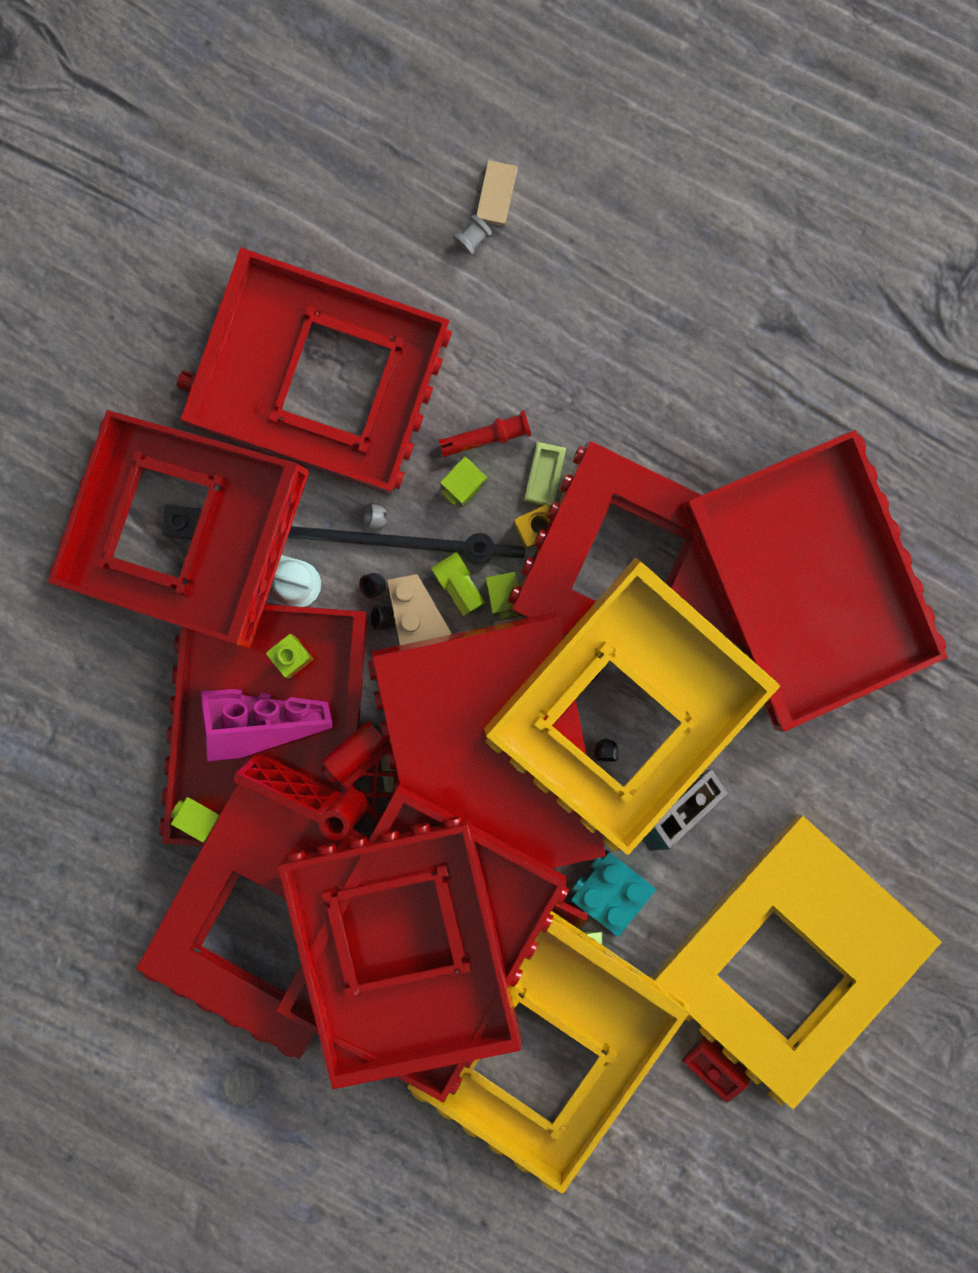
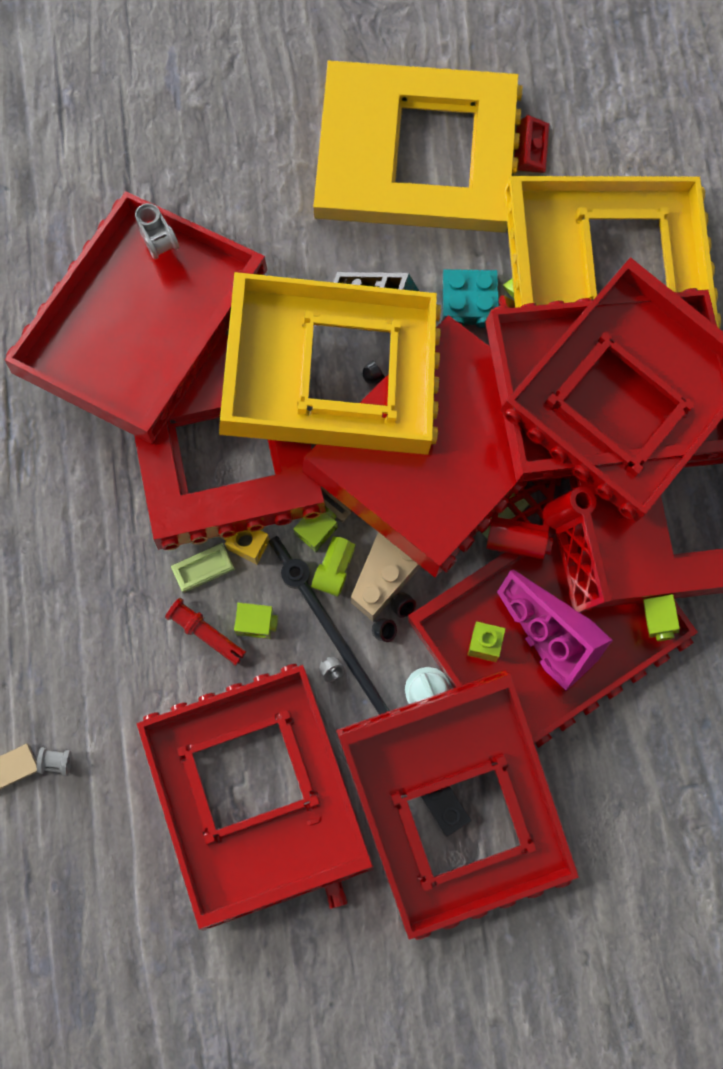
camera: 130 degrees left, 10 degrees down
(877, 650) = (156, 234): none -> light grey piece

